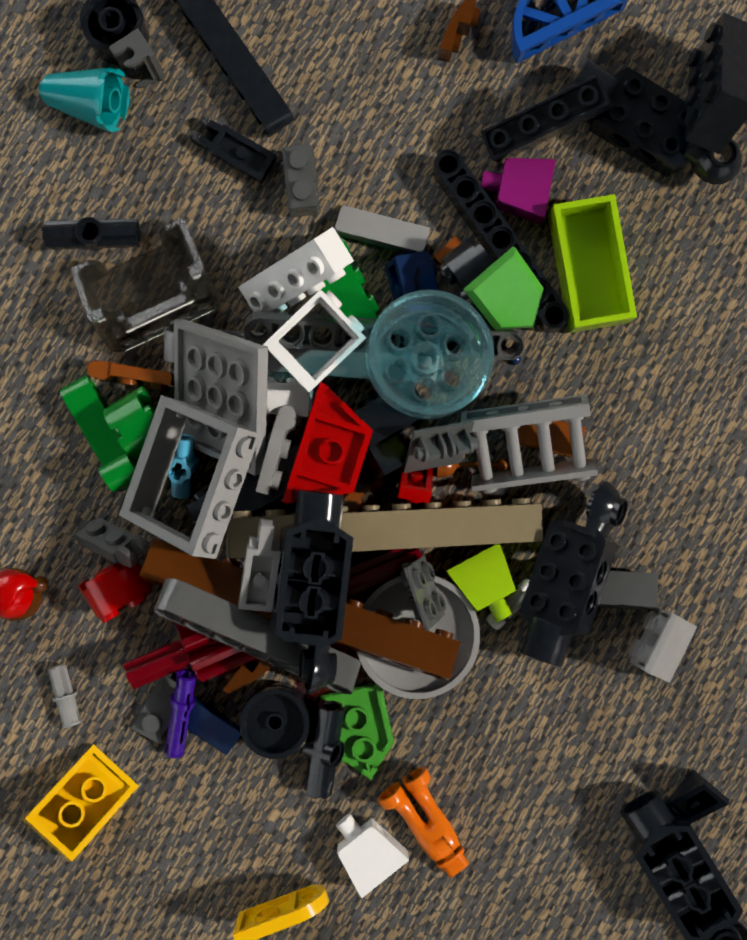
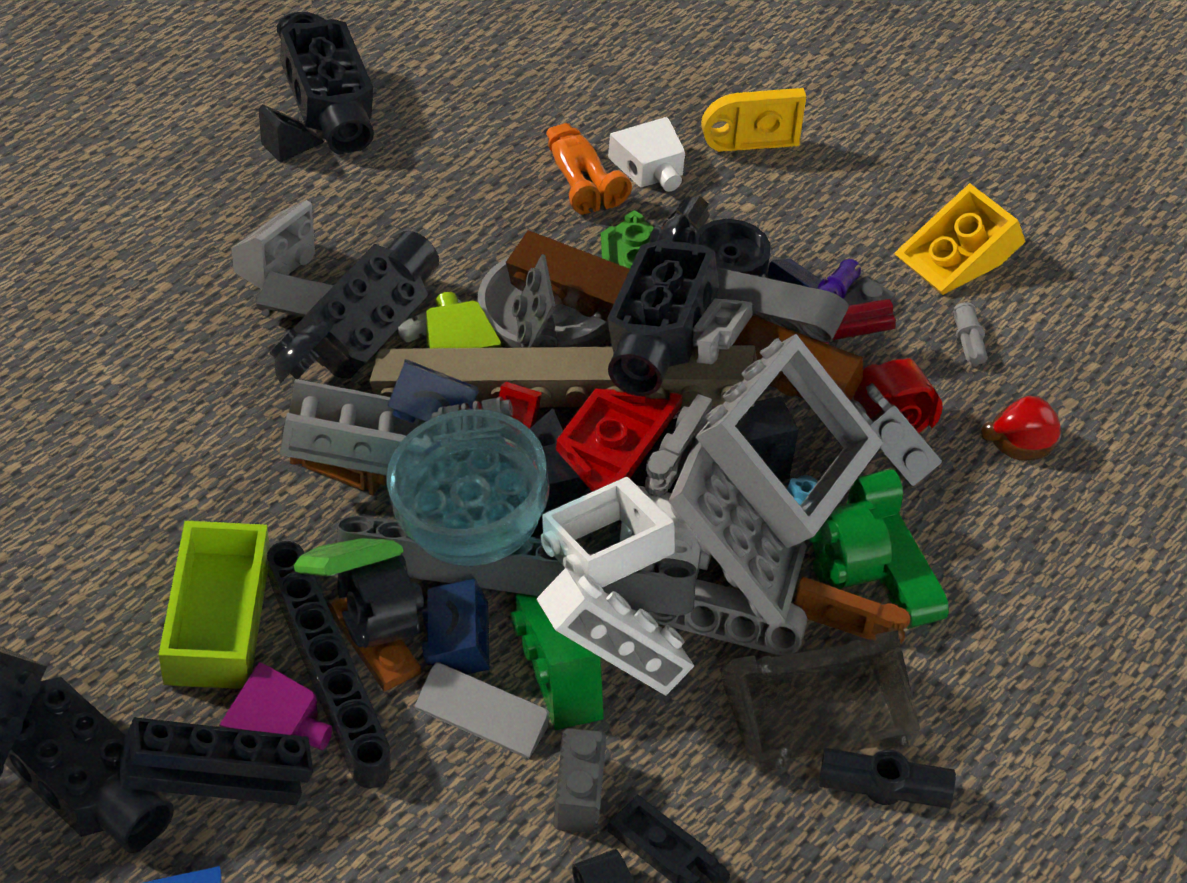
camera: 170 degrees left, 40 degrees down
(484, 479) = (423, 390): none -> dark blue brick

